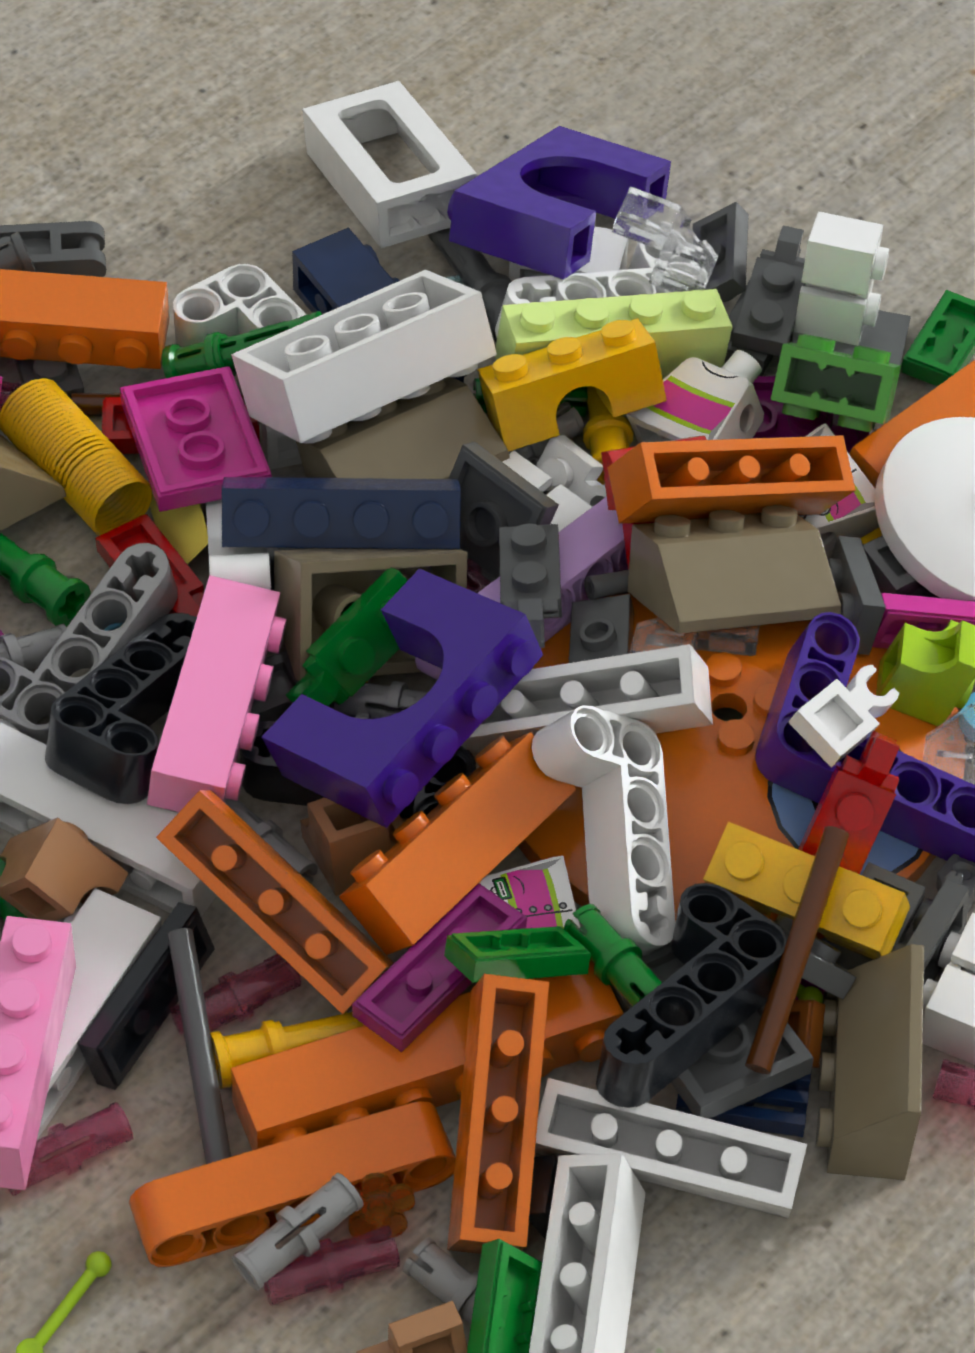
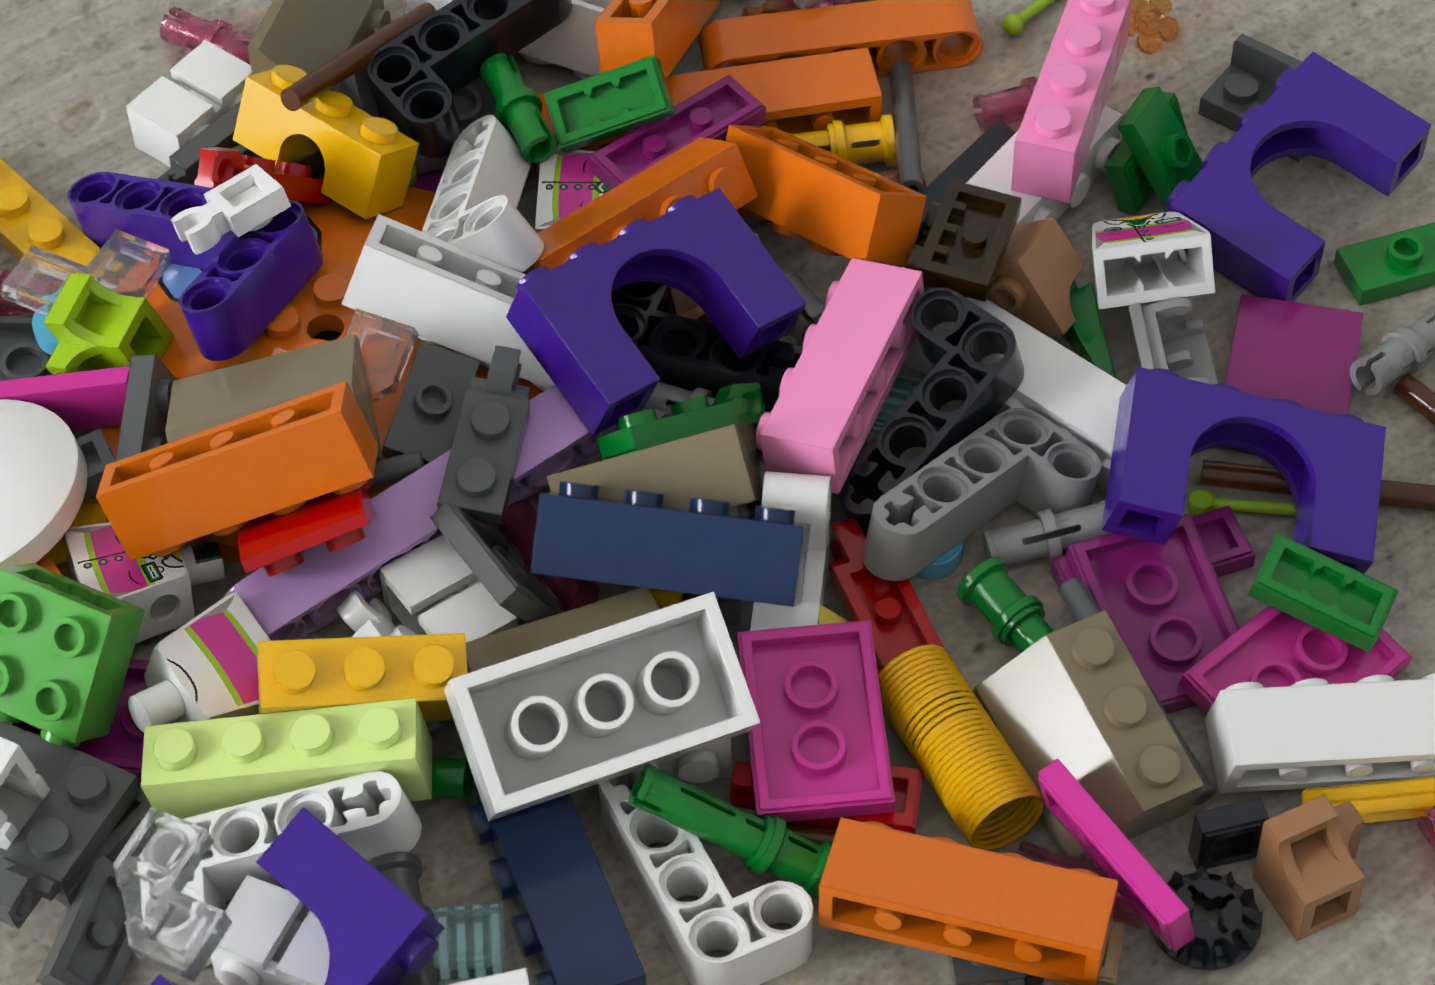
camera: 165 degrees left, 0 degrees up
(116, 840) = (965, 239): none -> dark brown bracket

